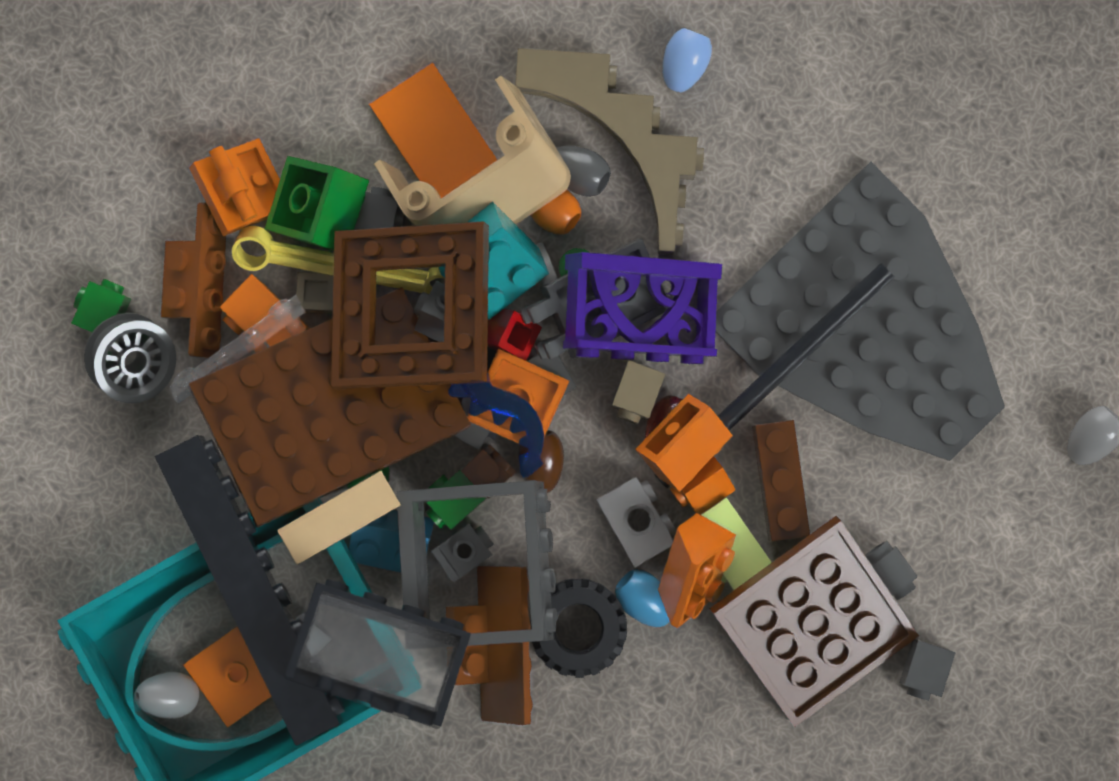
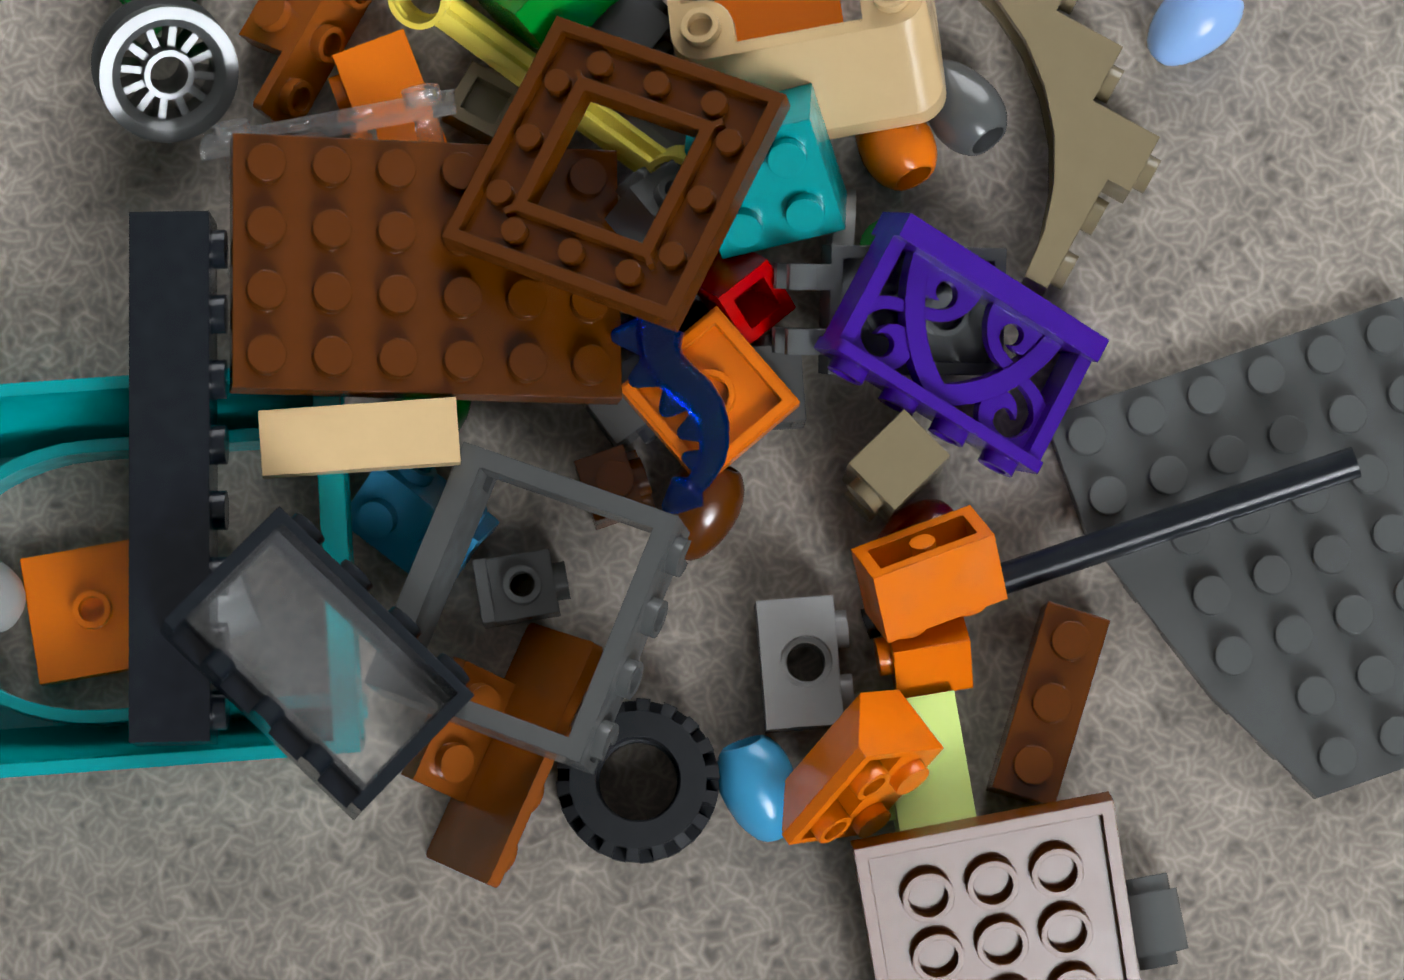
camera: 15 degrees right, 5 degrees down
(452, 511) = (538, 517): green brick -> none

